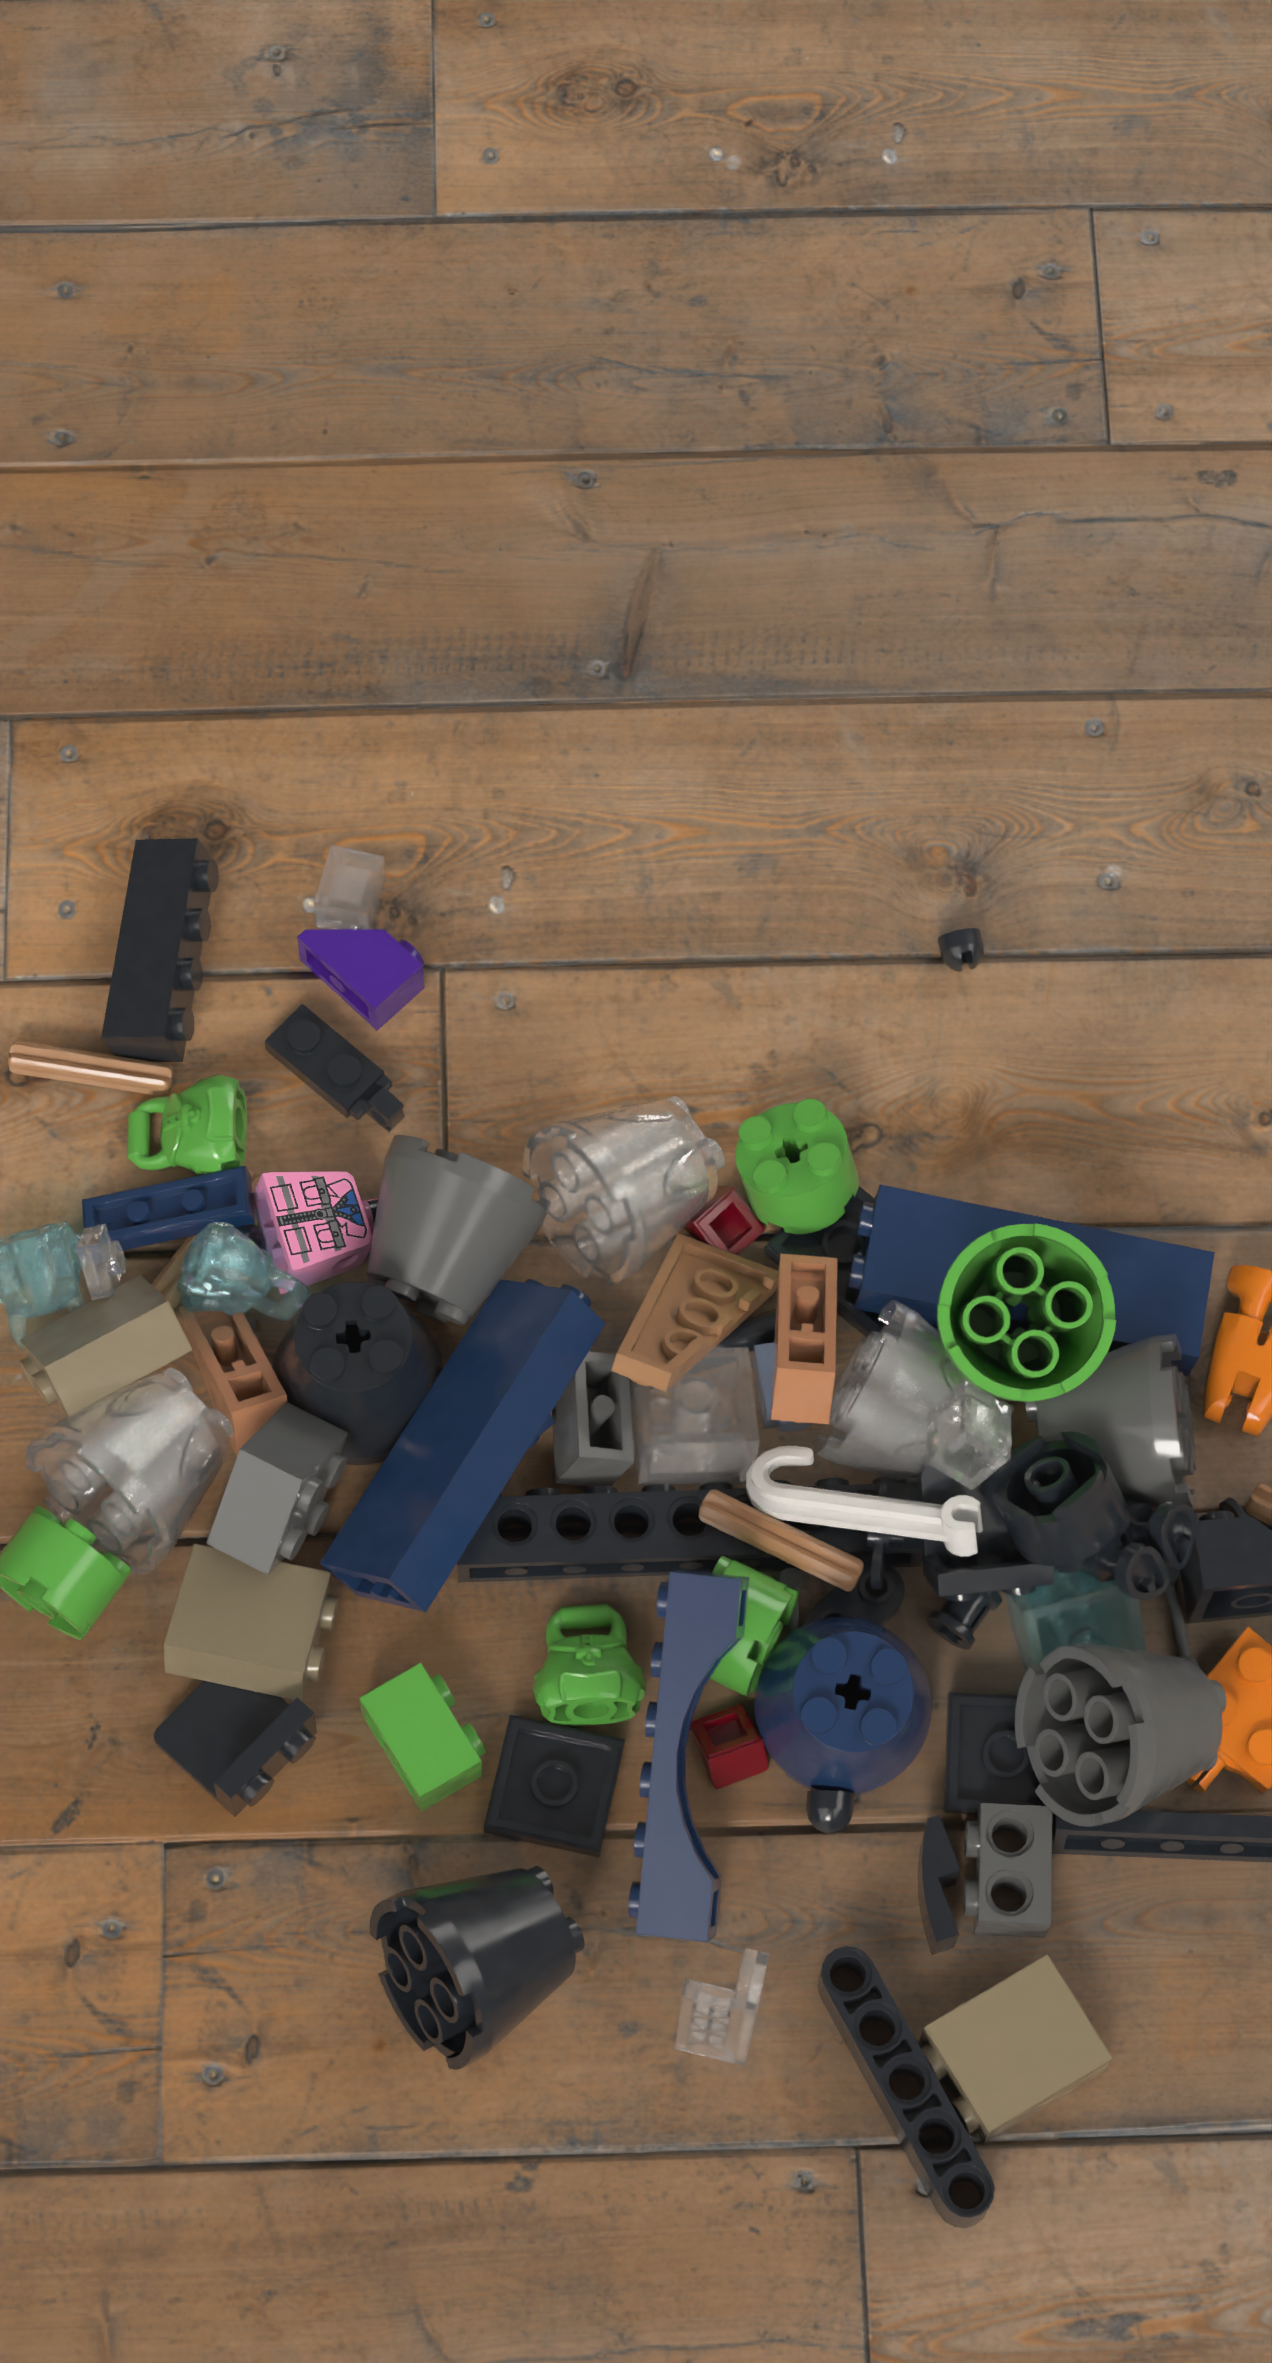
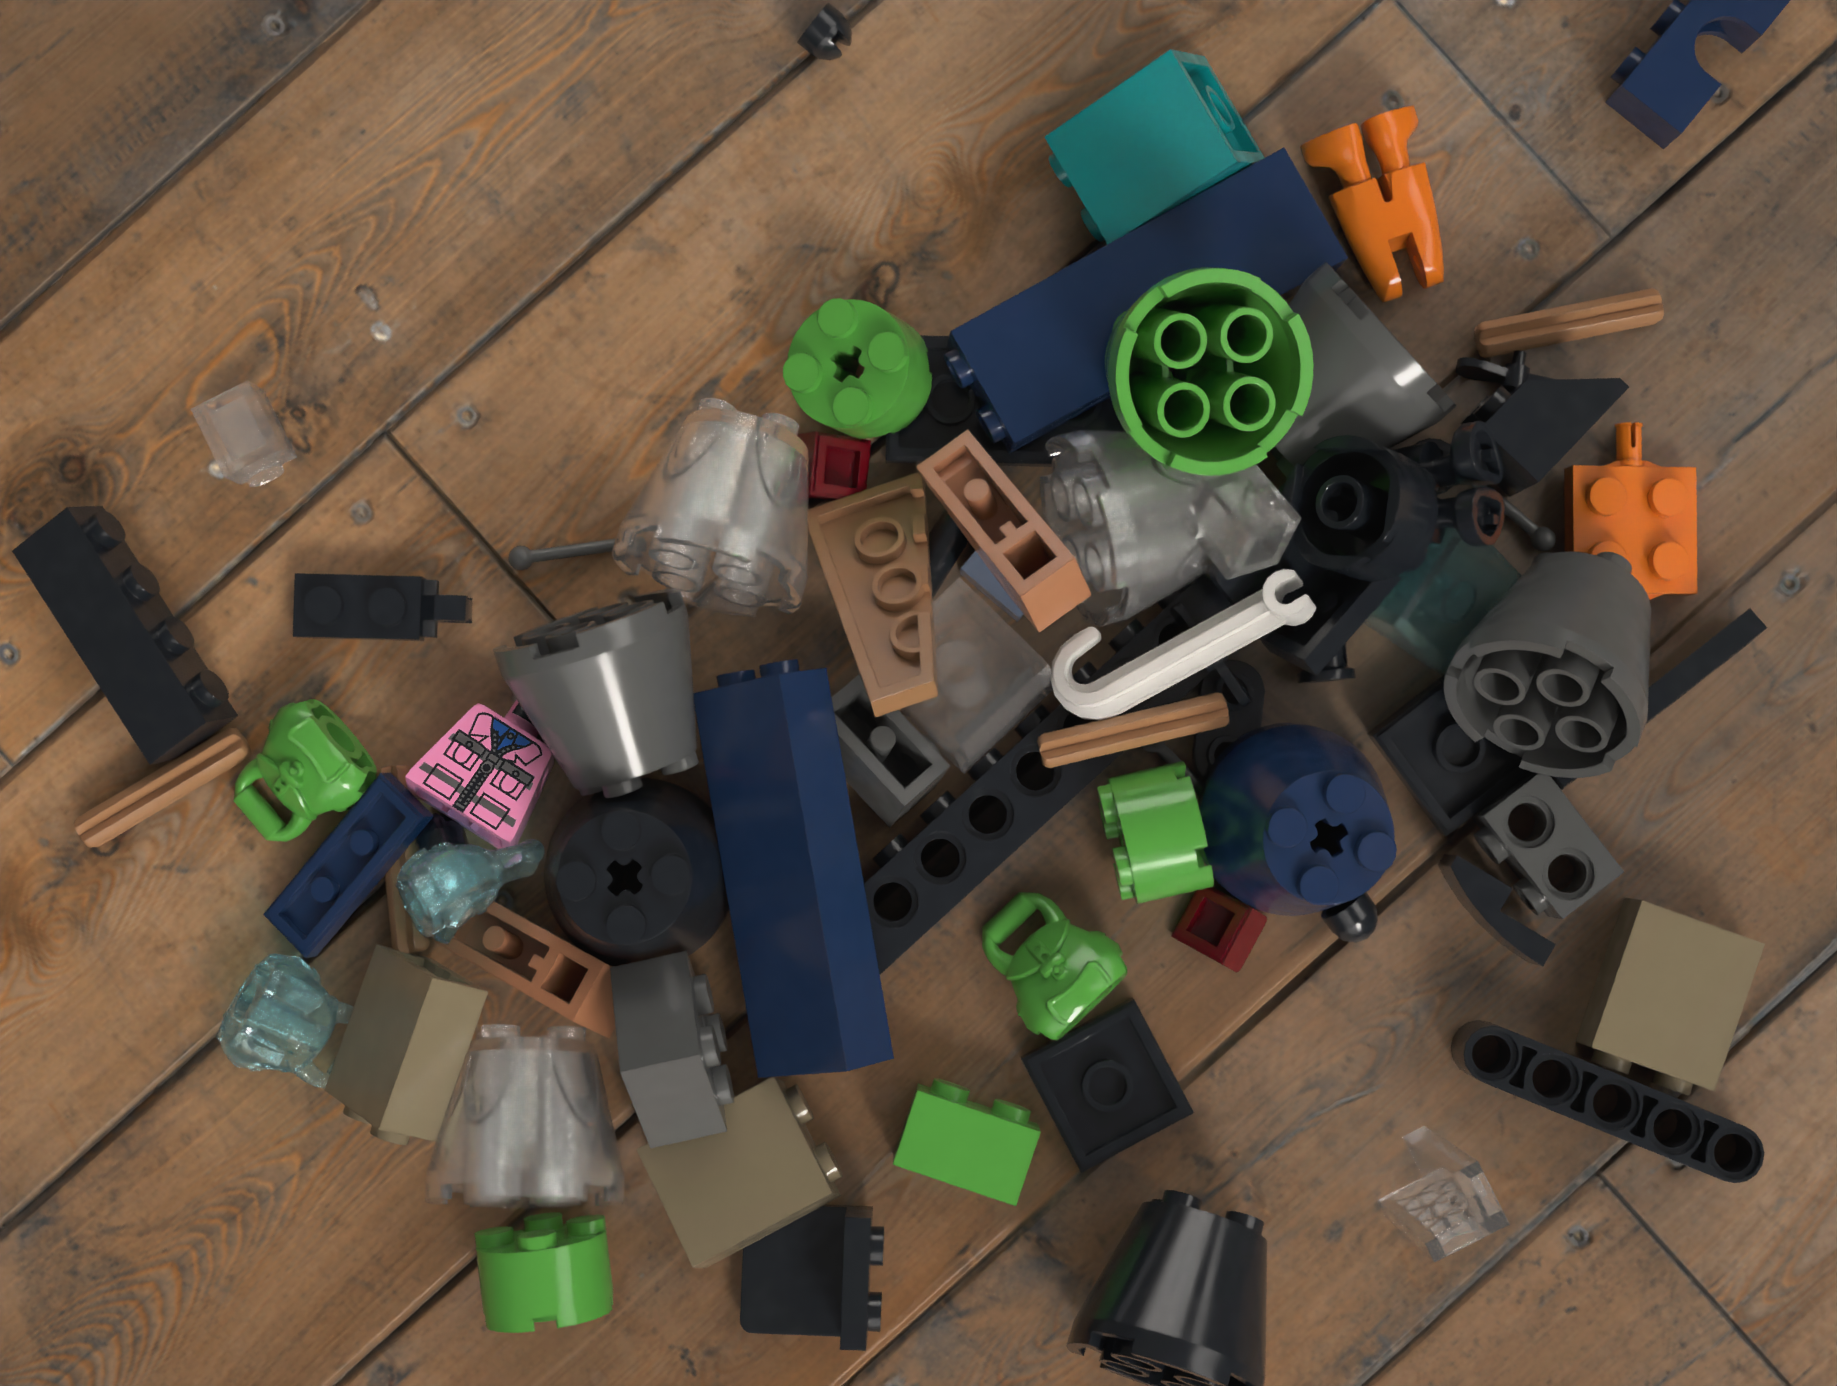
camera: 30 degrees left, 20 degrees up
(100, 1261) = (331, 966): clear plate -> none
(365, 969) = (323, 495): dark purple slope -> none
(462, 1115) = (522, 557): none -> dark grey hinge
(678, 1877) = (1152, 890): dark blue arch -> none
(1128, 1178) = (1151, 145): none -> teal slope

